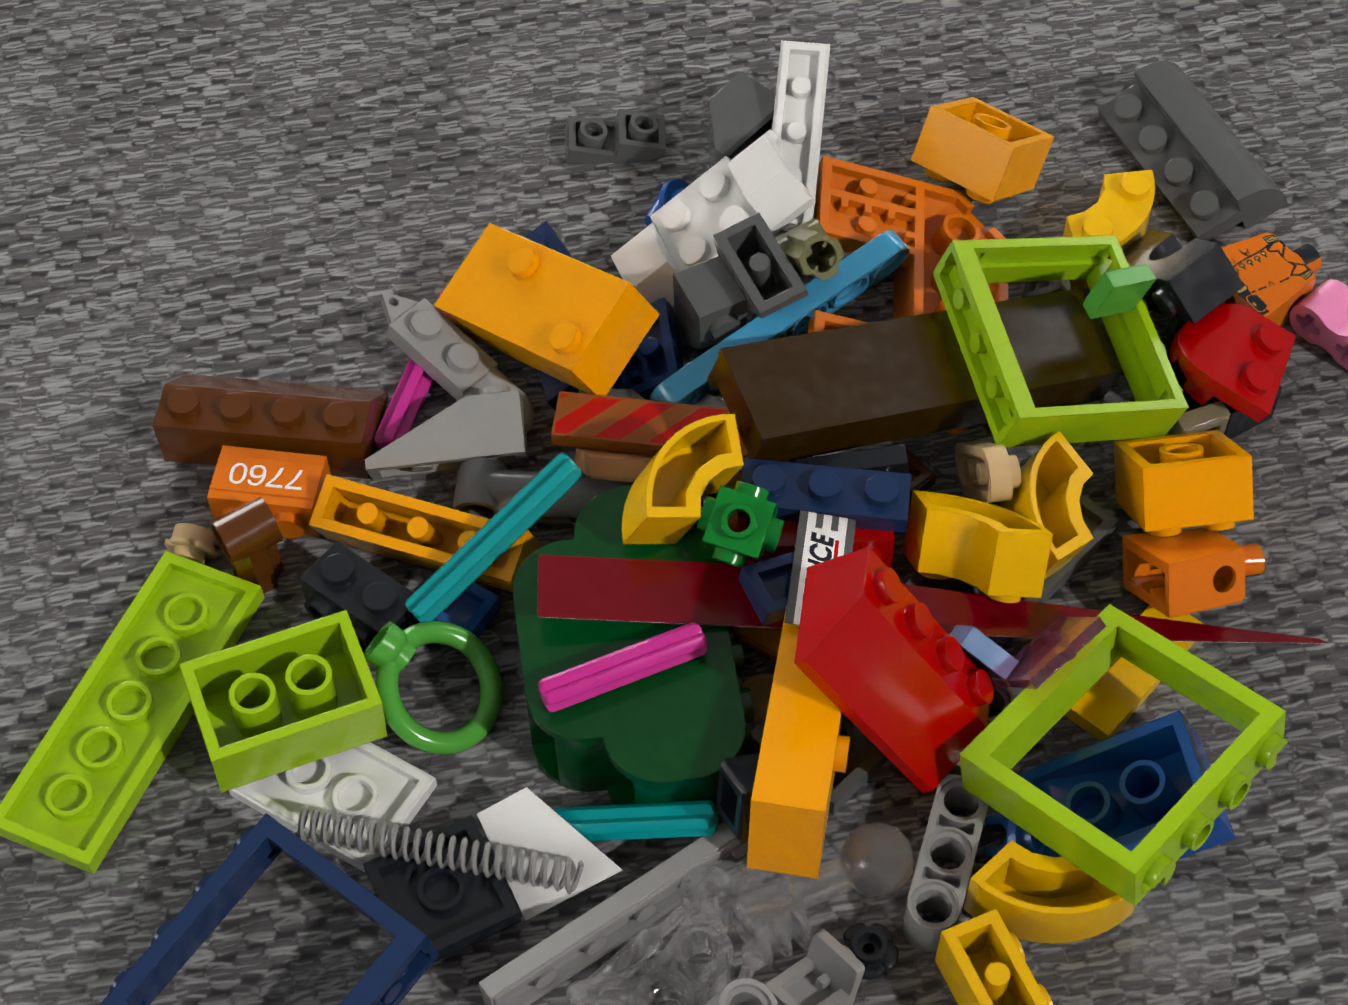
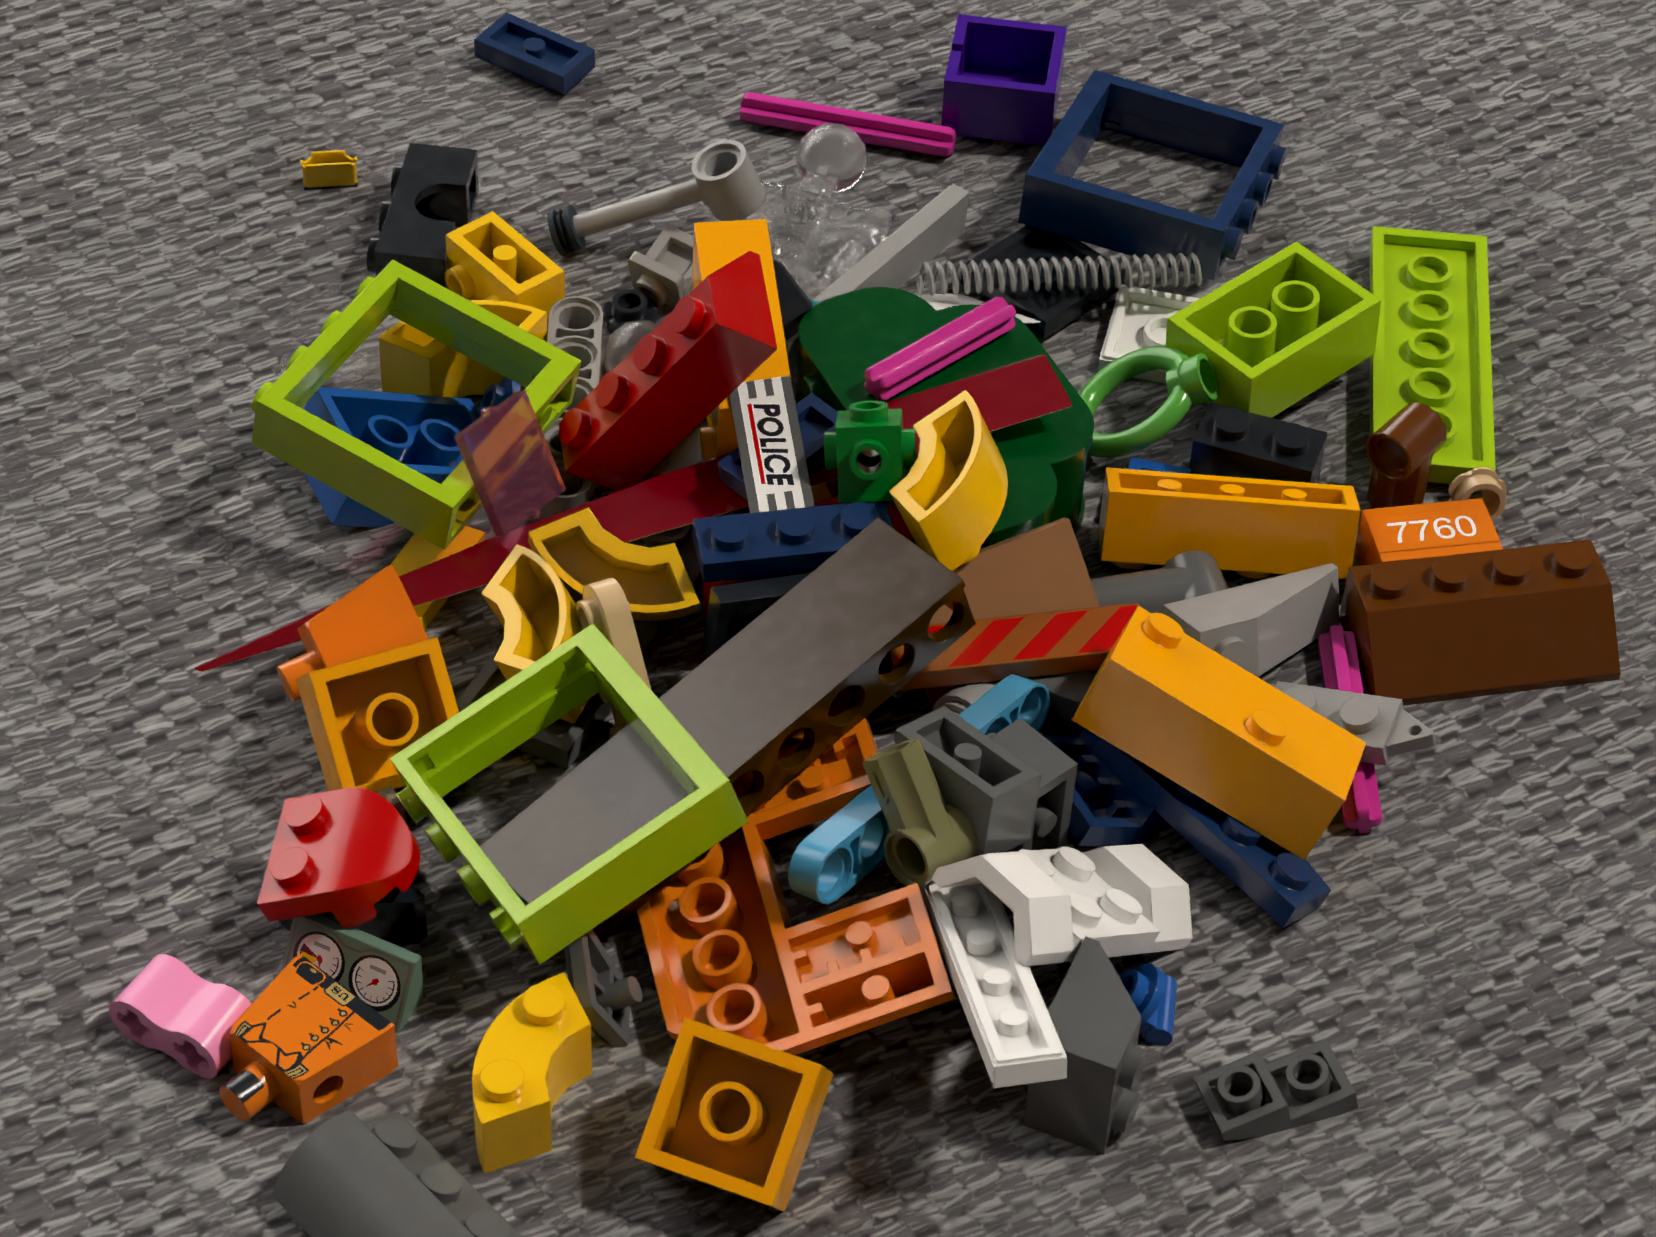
camera: 160 degrees right, 10 degrees down
(494, 538) = (1135, 466): teal axle -> none
(984, 652) = (582, 466): medium blue tile -> none
(1118, 291) = (500, 808): bright green tile -> none
(1188, 278) = (462, 975): black arch -> none

